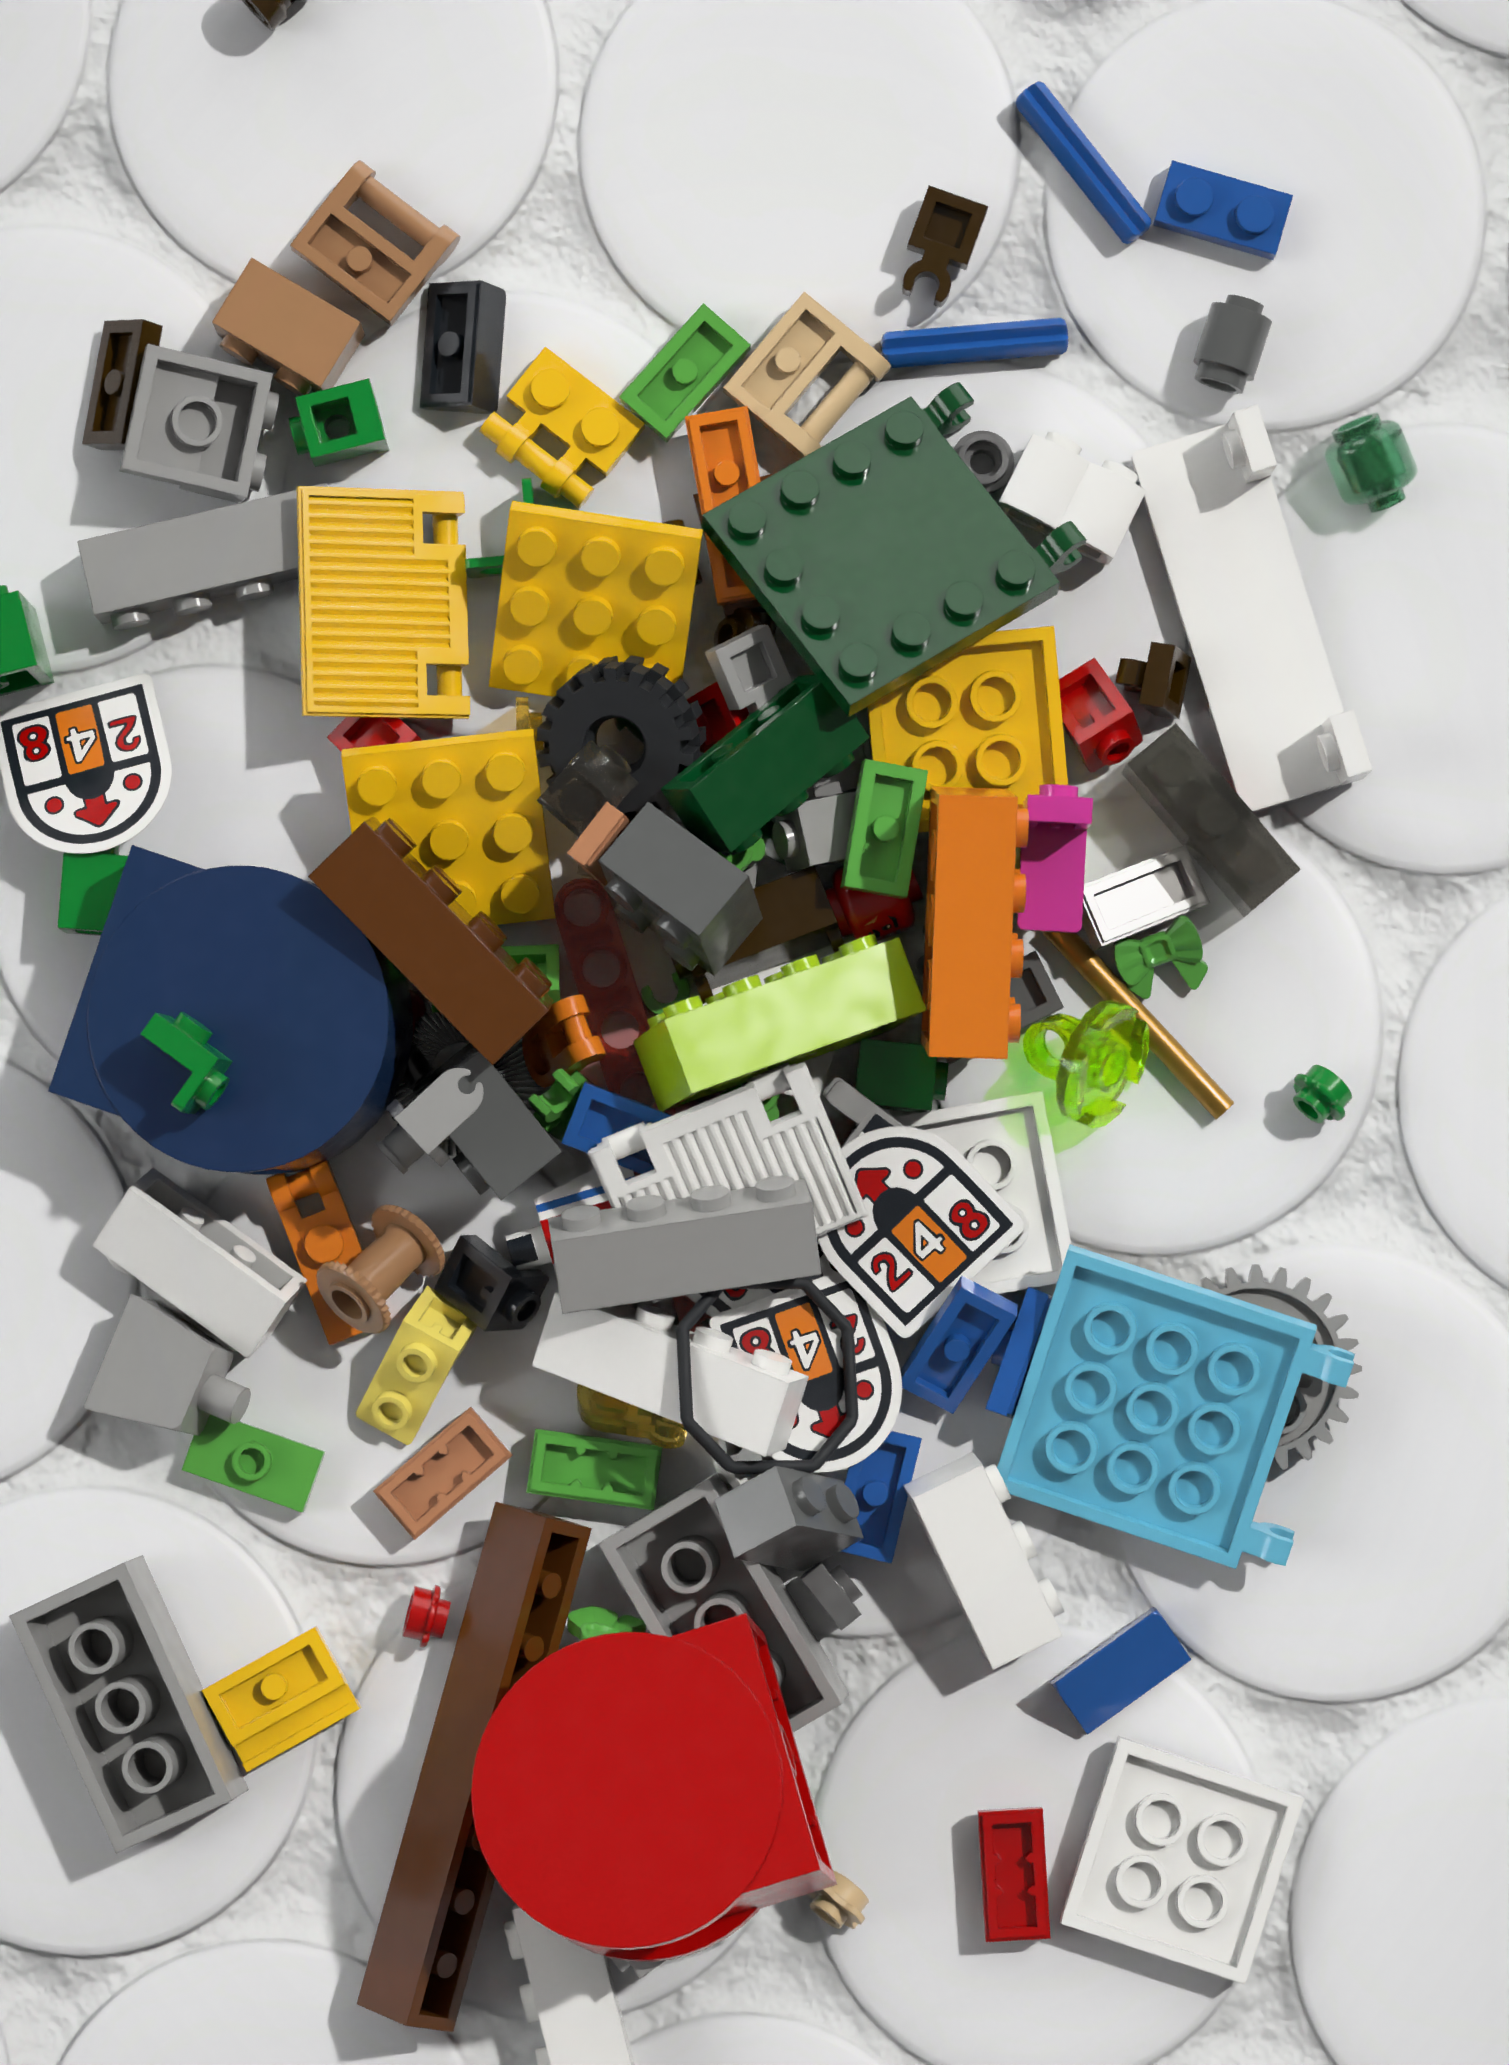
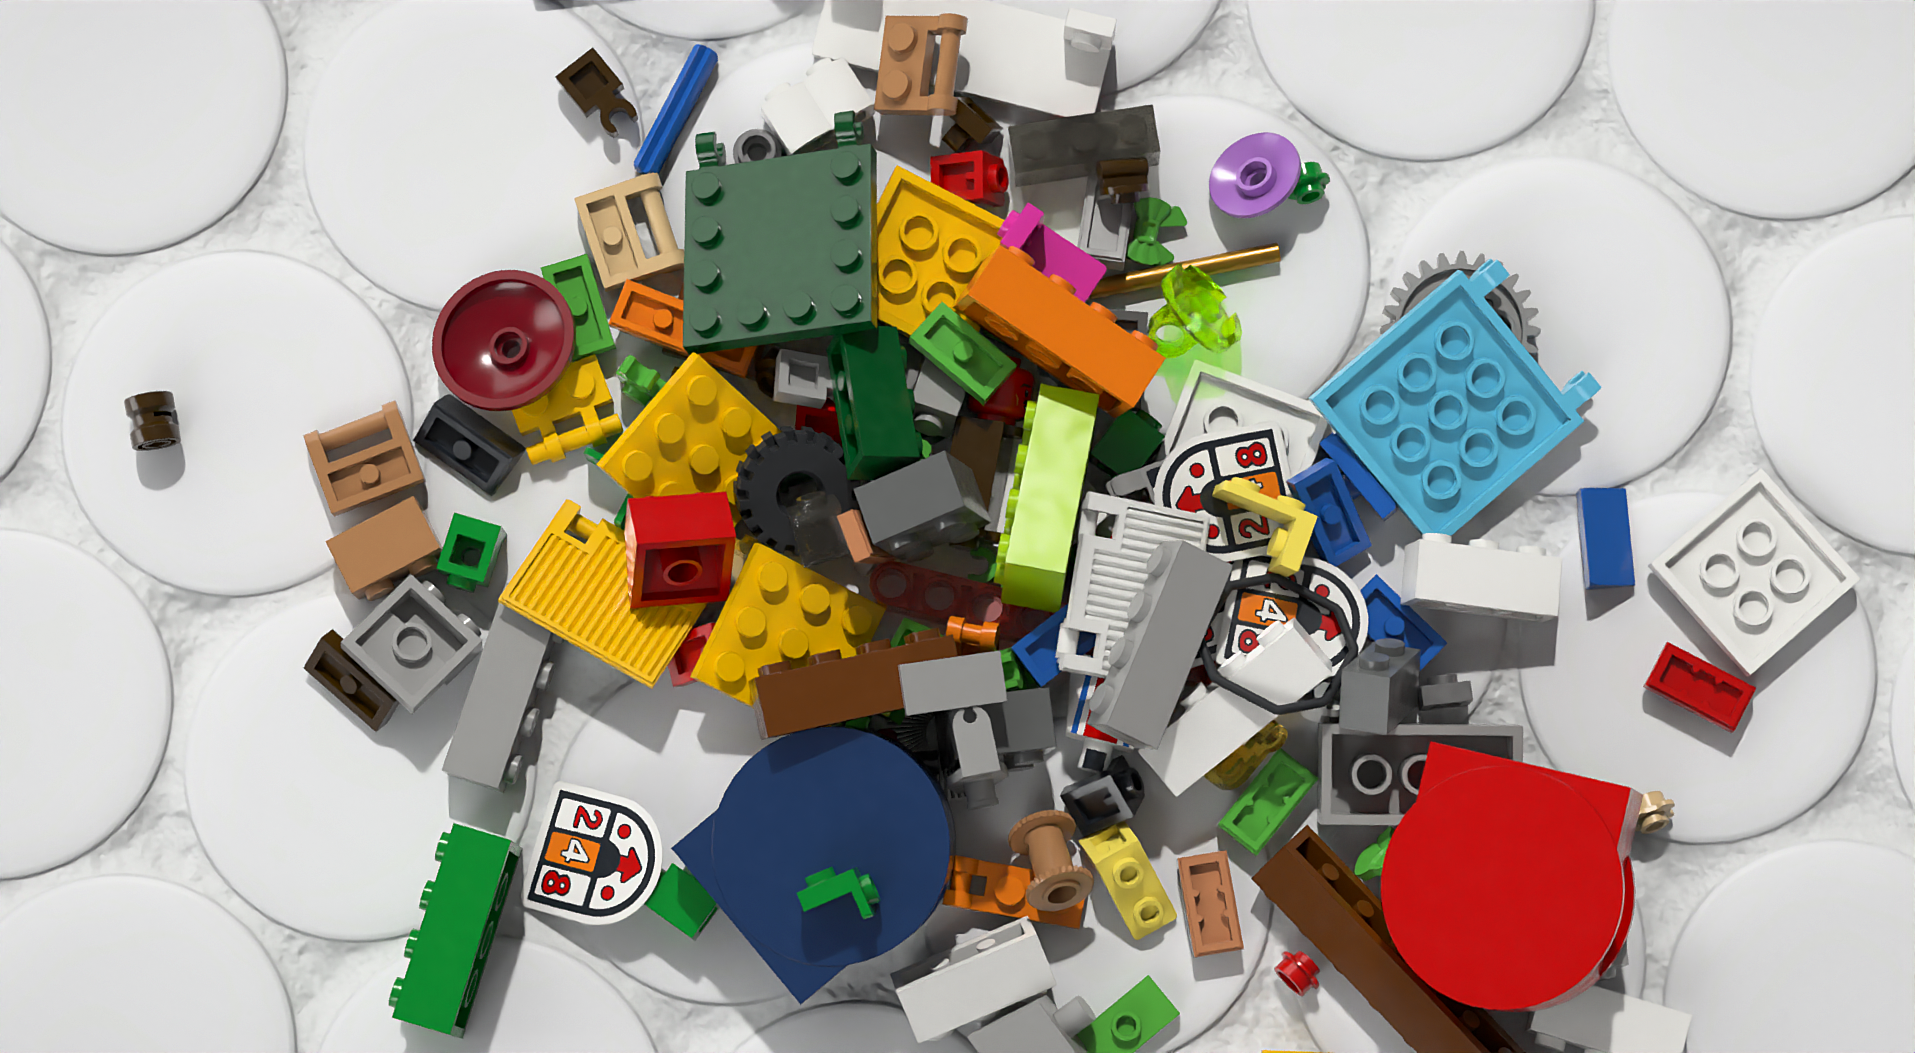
camera: 50 degrees left, 5 degrees down
(474, 649) = (679, 549): none -> red slope
(492, 1043) = (952, 683): none -> light grey tile
(599, 280) = (490, 319): none -> dark red dish
(640, 492) = (639, 381): none -> bright green plate
(887, 1318) = (1286, 543): none -> light yellow bracket
(1182, 568) = (908, 64): none -> medium nougat plate
(1195, 888) = (1123, 179): none -> dark brown plate
(1299, 1015) = (1255, 175): none -> medium lavender dish

